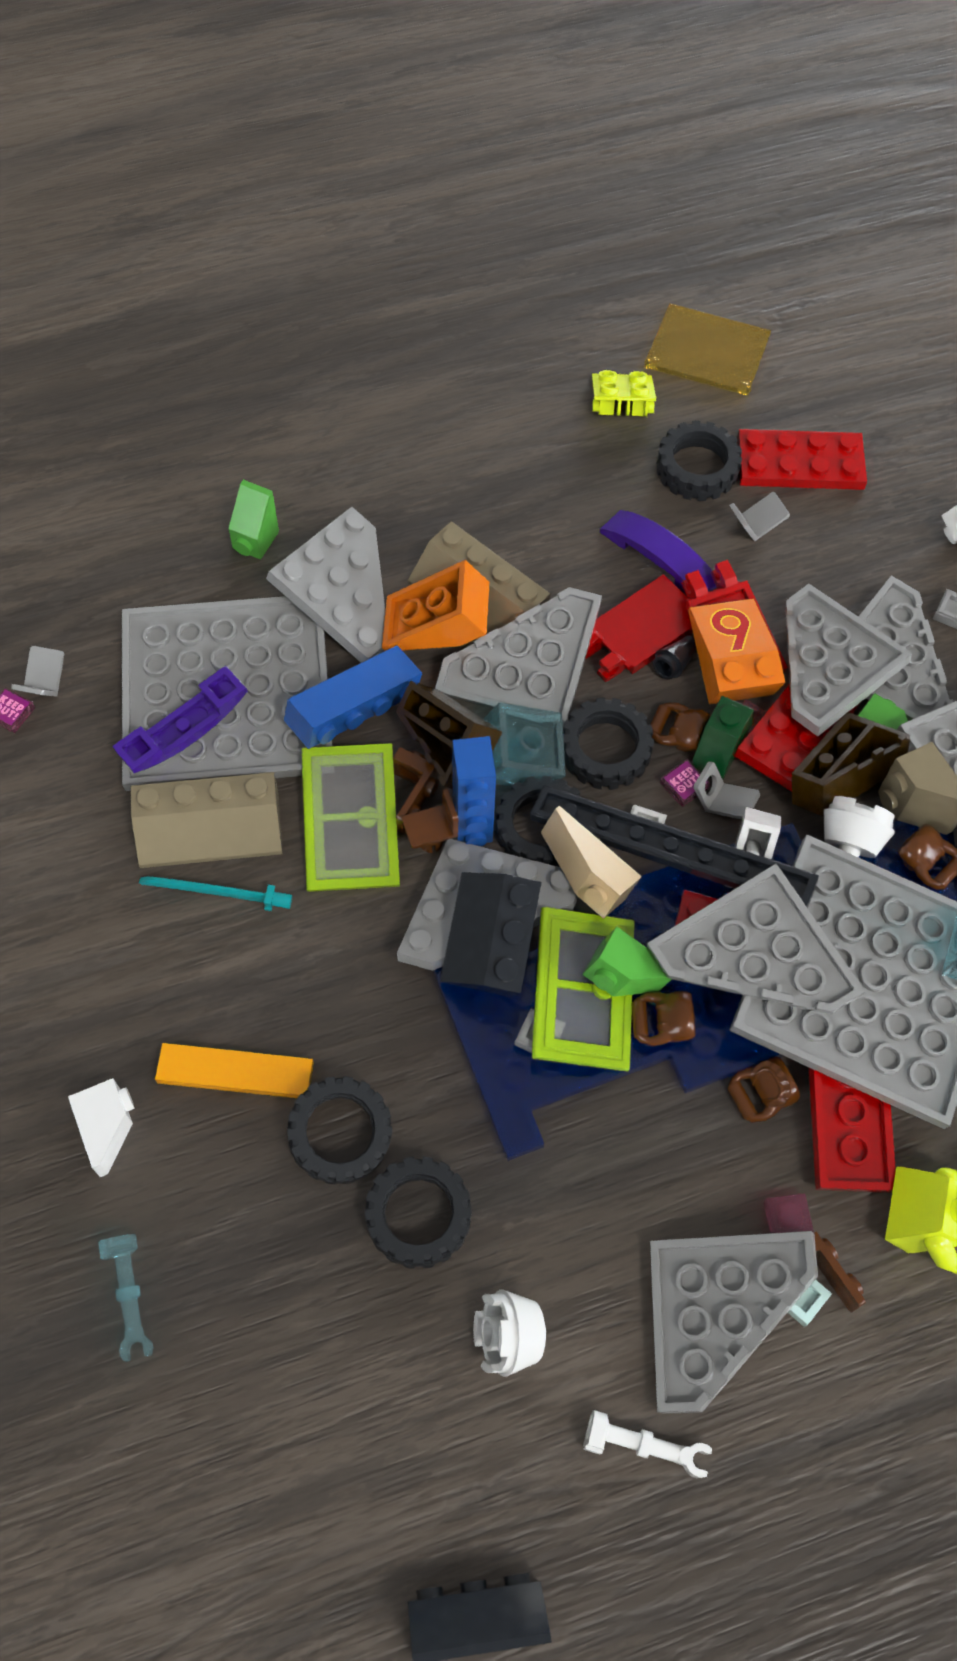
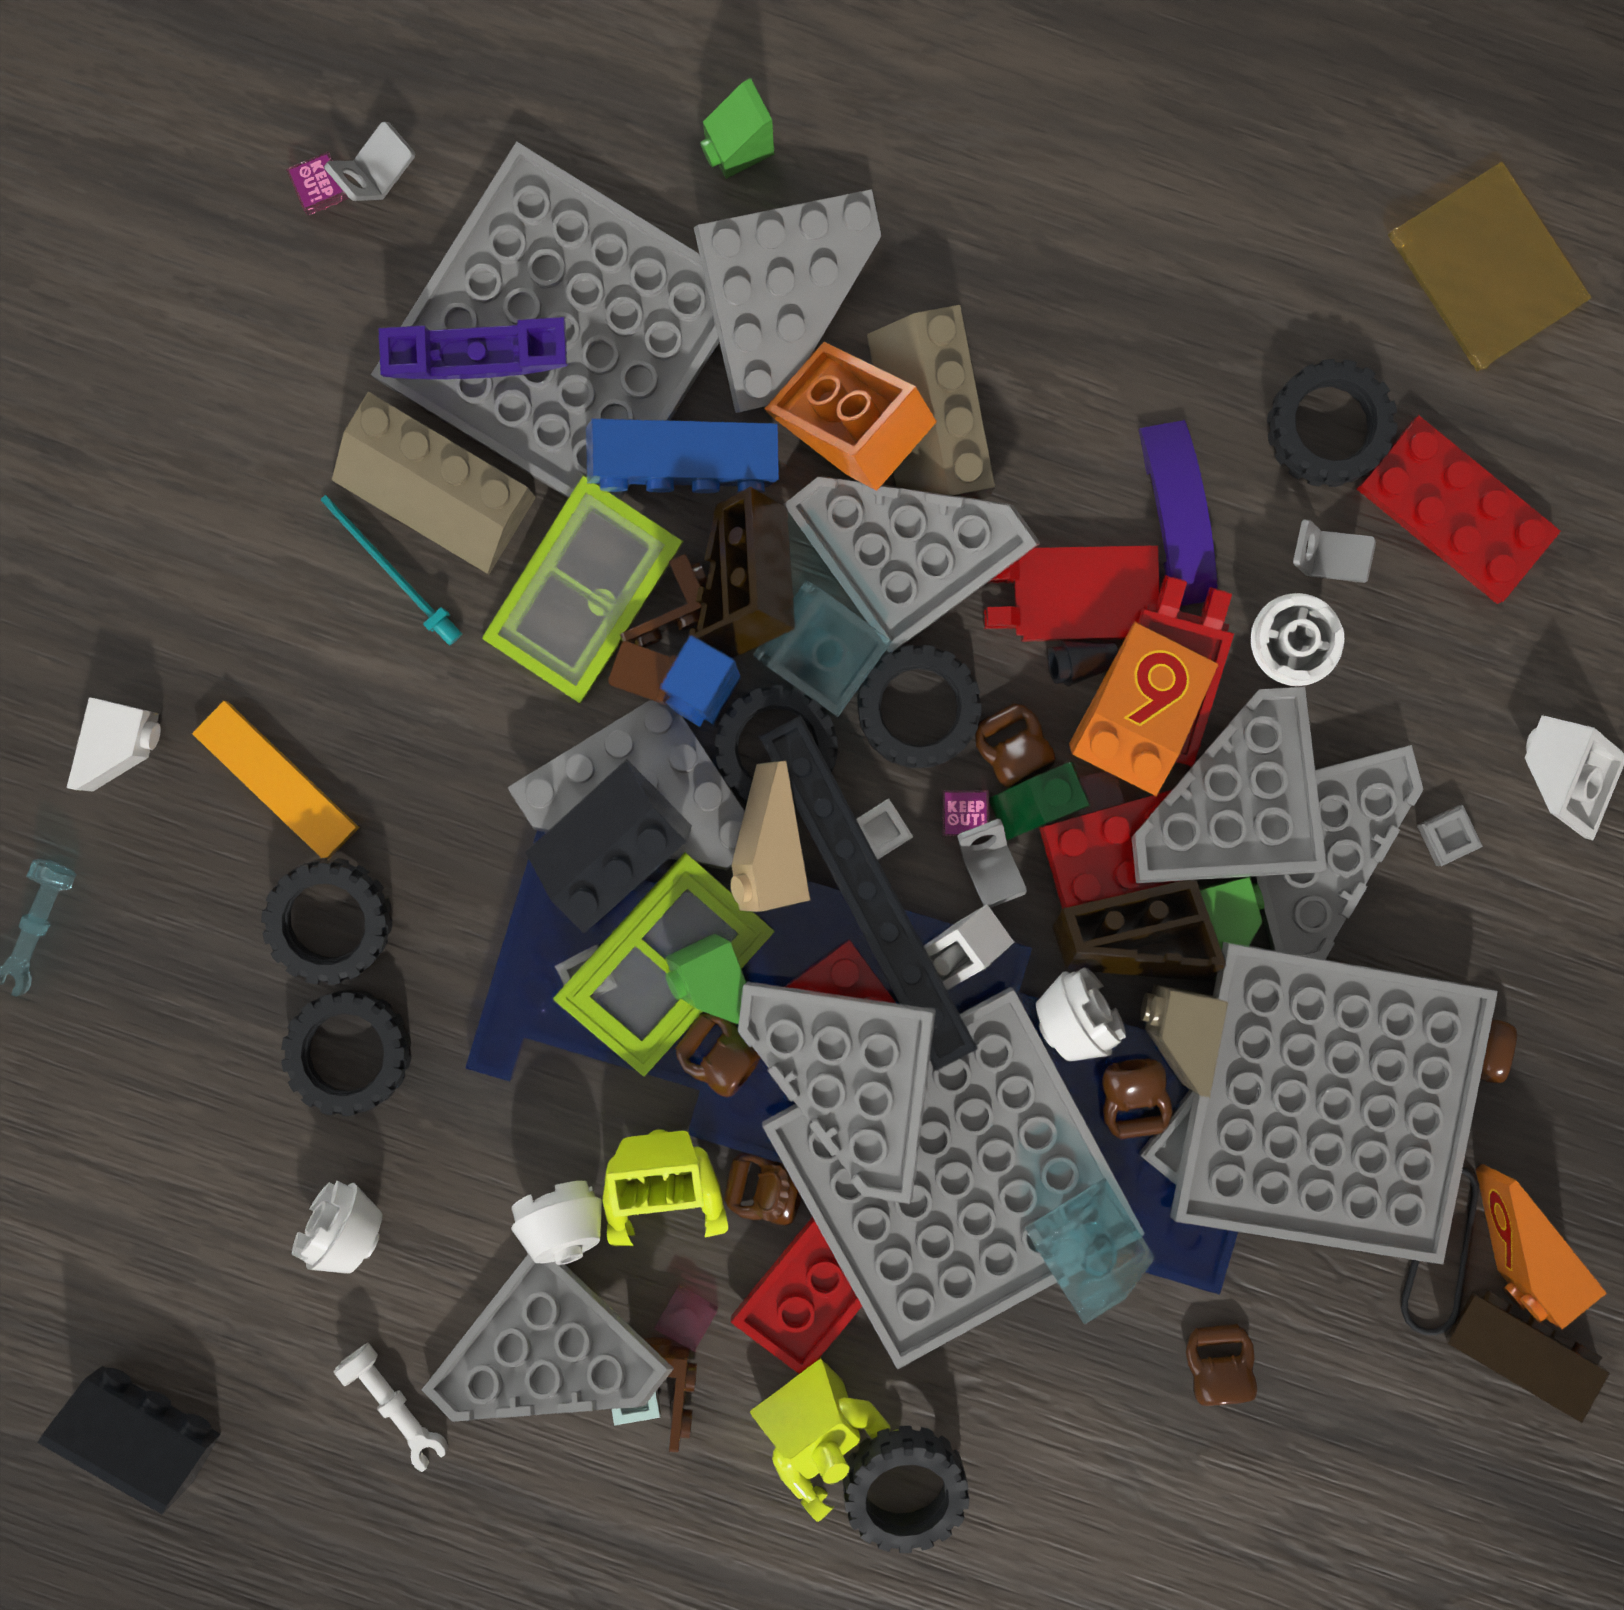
camera: 40 degrees right, 25 degrees up
(629, 387) = (1328, 254): neon yellow hinge -> none
(655, 1206) = (559, 1223): none -> white cone
(691, 1117) = (657, 1176): none -> neon yellow torso
(782, 562) = (1297, 639): none -> white cone

